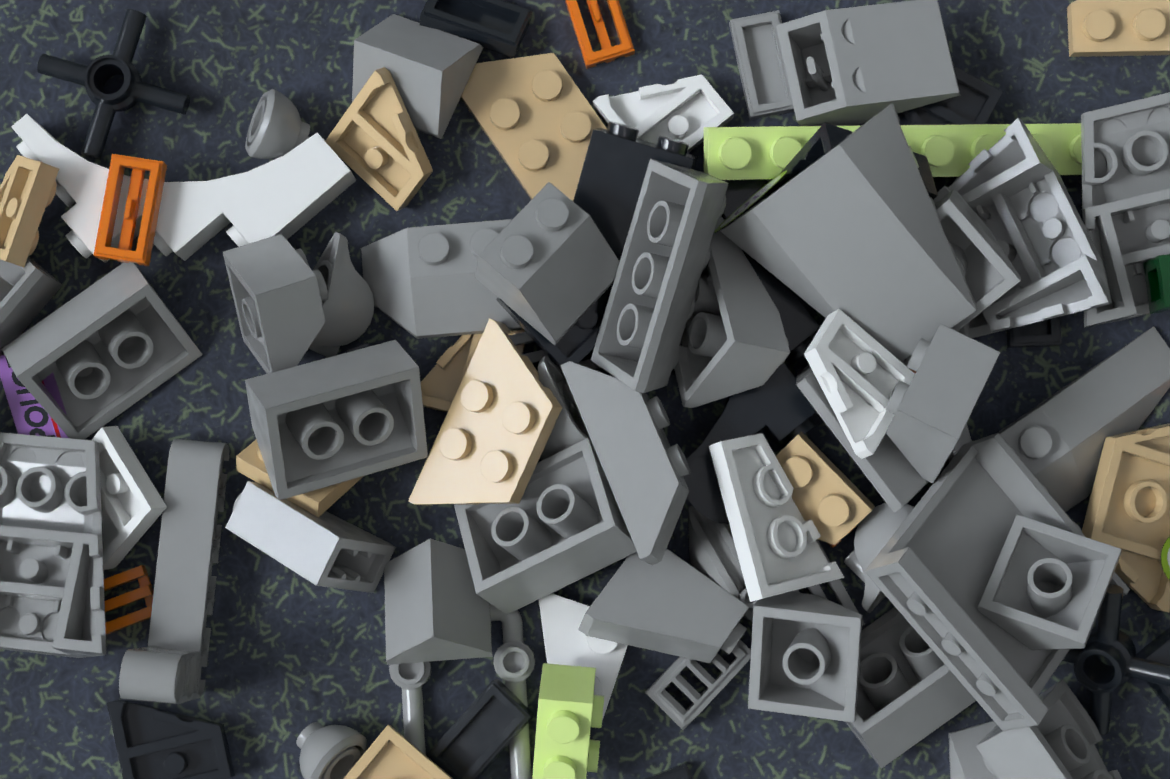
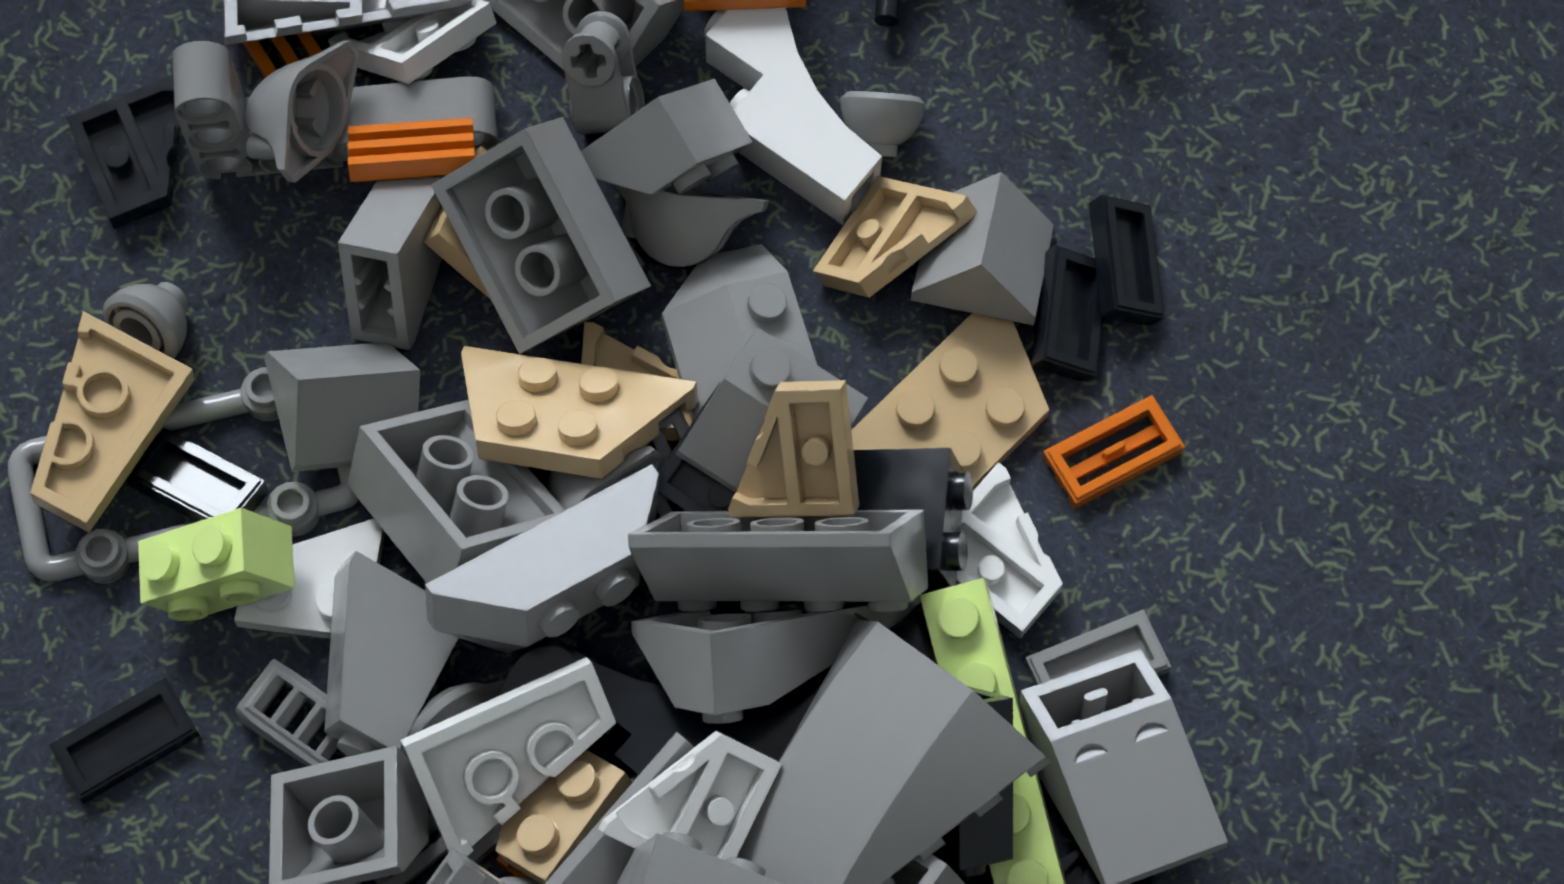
camera: 75 degrees right, 15 degrees down
(180, 601) = (302, 110): none -> light grey hat
(192, 344) = (601, 74): none -> light grey piece
(225, 512) = (409, 149): none -> orange tile
(593, 244) = (801, 456): none -> tan wing

